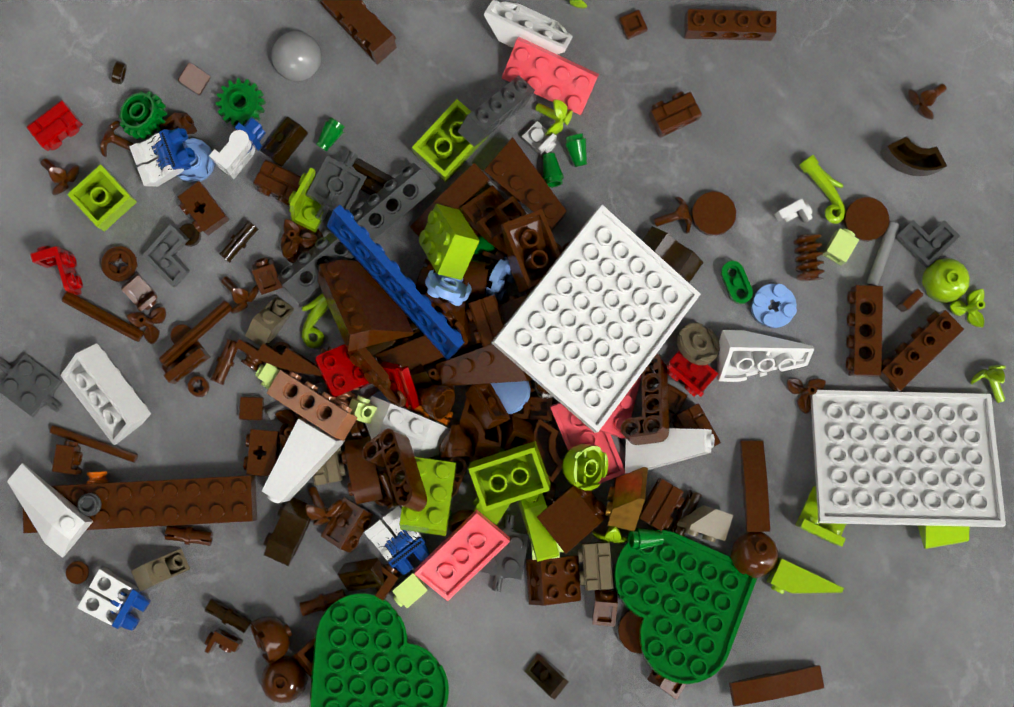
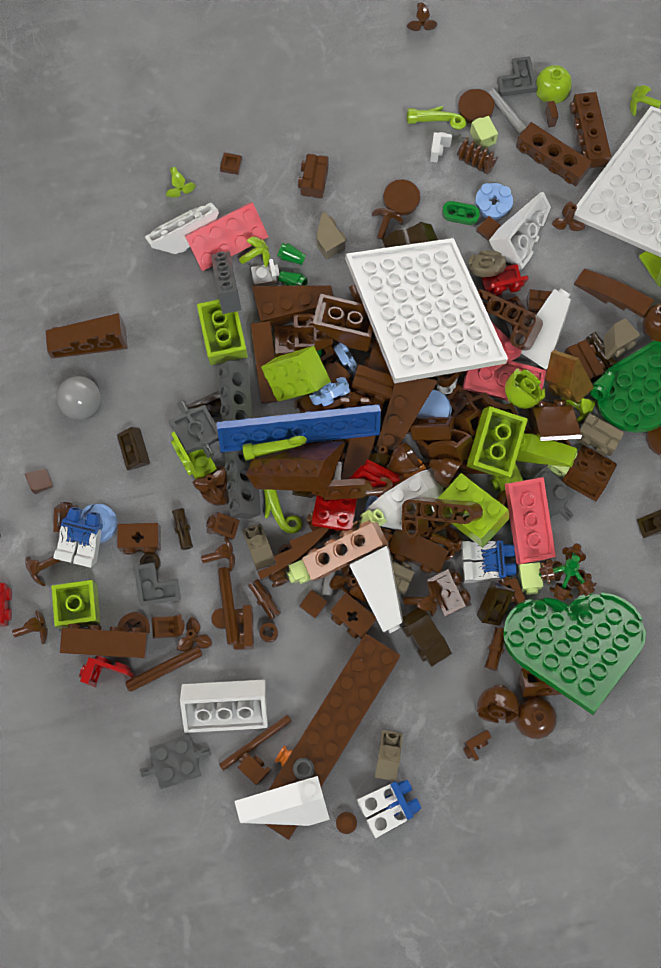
camera: 50 degrees left, 10 degrees down
(83, 247) = (103, 642): none -> reddish brown wedge
(142, 114) = (36, 534): green gear -> none
(188, 535) = (377, 716): reddish brown pin -> none
(227, 615) = (458, 727): dark brown pin -> none
(239, 92) = (75, 452): green gear -> none
(239, 148) = (114, 470): white hips -> none
(276, 181) = (162, 470): reddish brown brick -> none
(330, 133) = (152, 410): green cone -> none
(344, 254) = (253, 450): none -> lime plant
(439, 624) = (578, 578): none -> reddish brown plant
(605, 607) = (634, 448): reddish brown bracket -> none
(618, 173) = (328, 238): none -> dark tan slope
(730, 24) = (279, 102): reddish brown brick -> none
(740, 320) = (488, 228): none -> reddish brown tile
(913, 159) = (456, 50): dark brown brick -> none
(975, 303) = (582, 78): lime plant -> none

